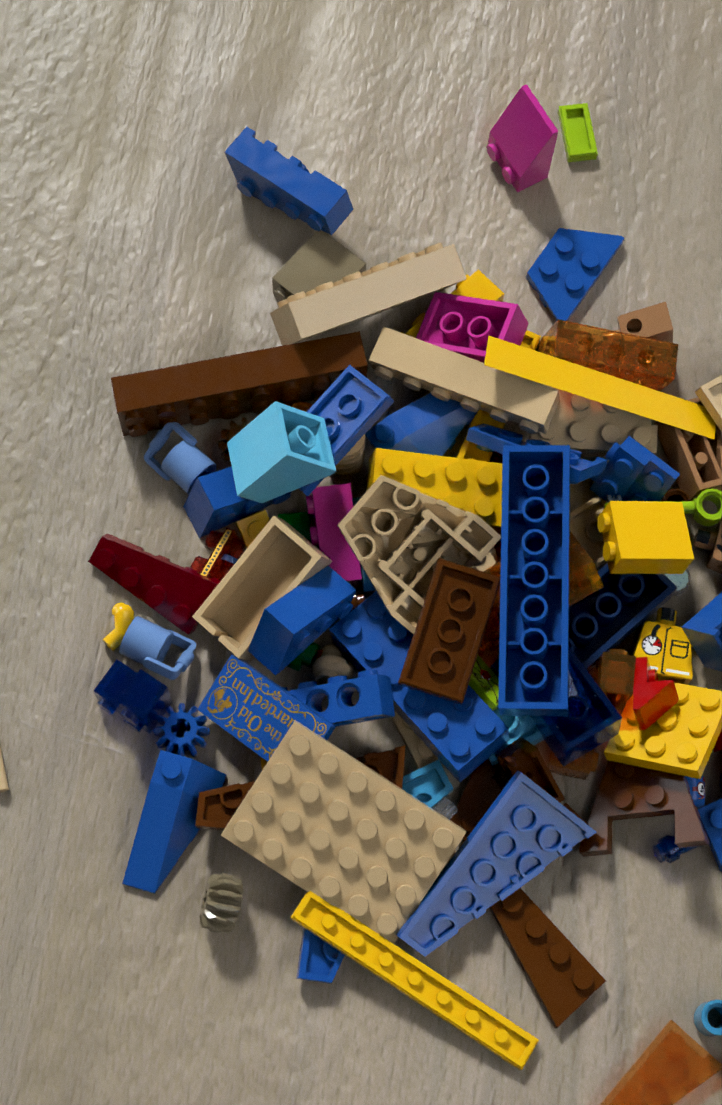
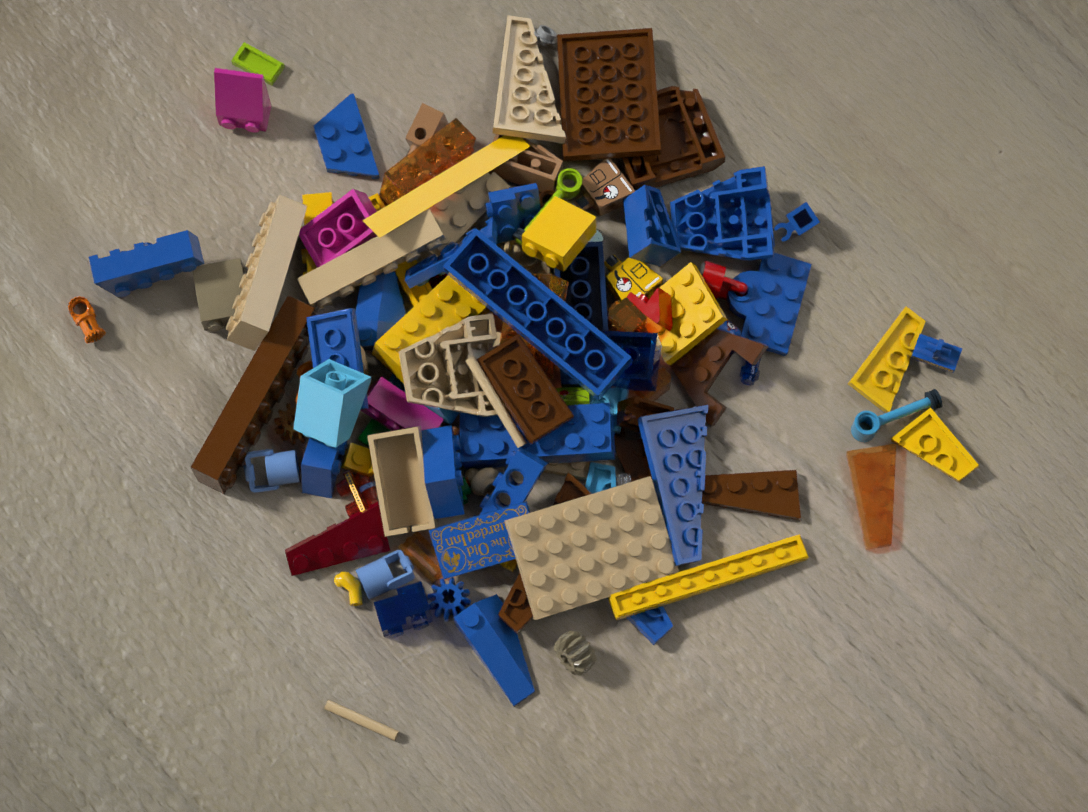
camera: 45 degrees left, 0 degrees up
(192, 180) = (86, 319): none -> orange connector
(212, 646) = (410, 541): none -> clear orange tile
(412, 613) = (495, 402): none -> tan bar

